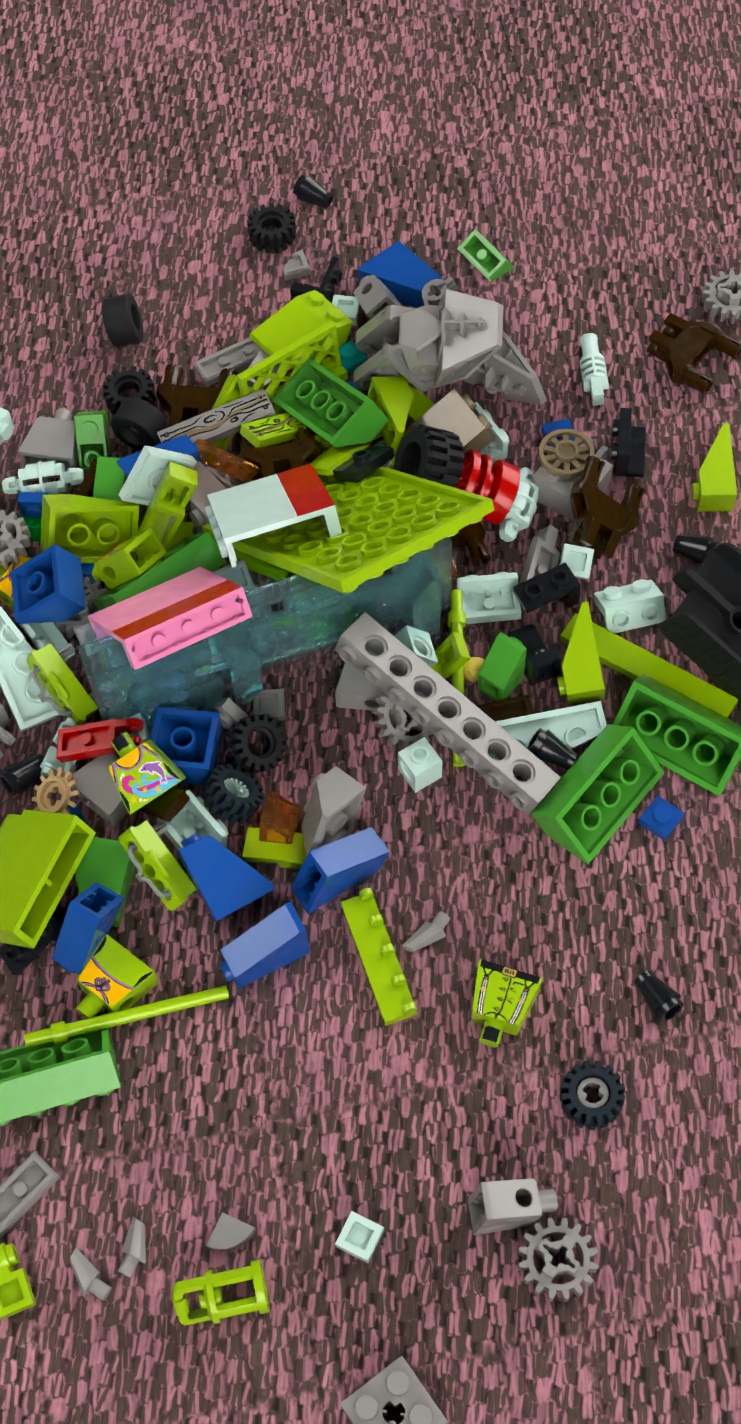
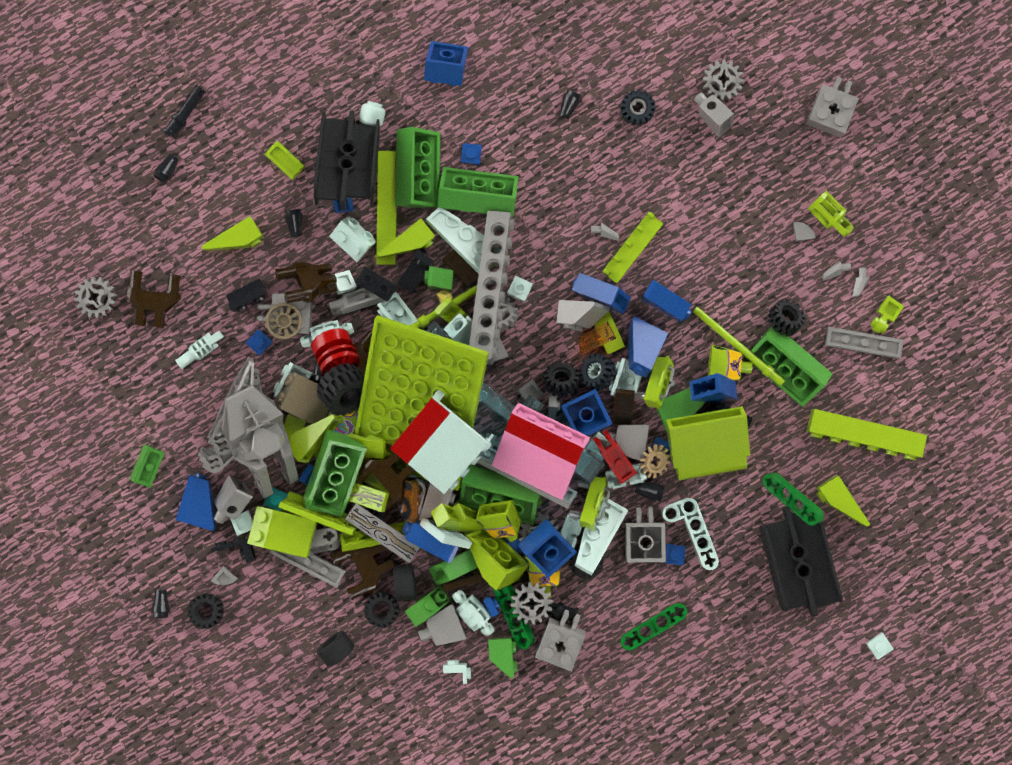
camera: 130 degrees left, 25 degrees up
(121, 1130) = (792, 312): none -> black tyre
(142, 772) = (621, 417): torso -> none
(359, 1237) = (768, 172): light aqua plate -> none
(363, 463) = (363, 427): black plate -> none
(502, 1000) = (619, 174): lime torso -> none
(551, 749) = (472, 228): black cone -> none

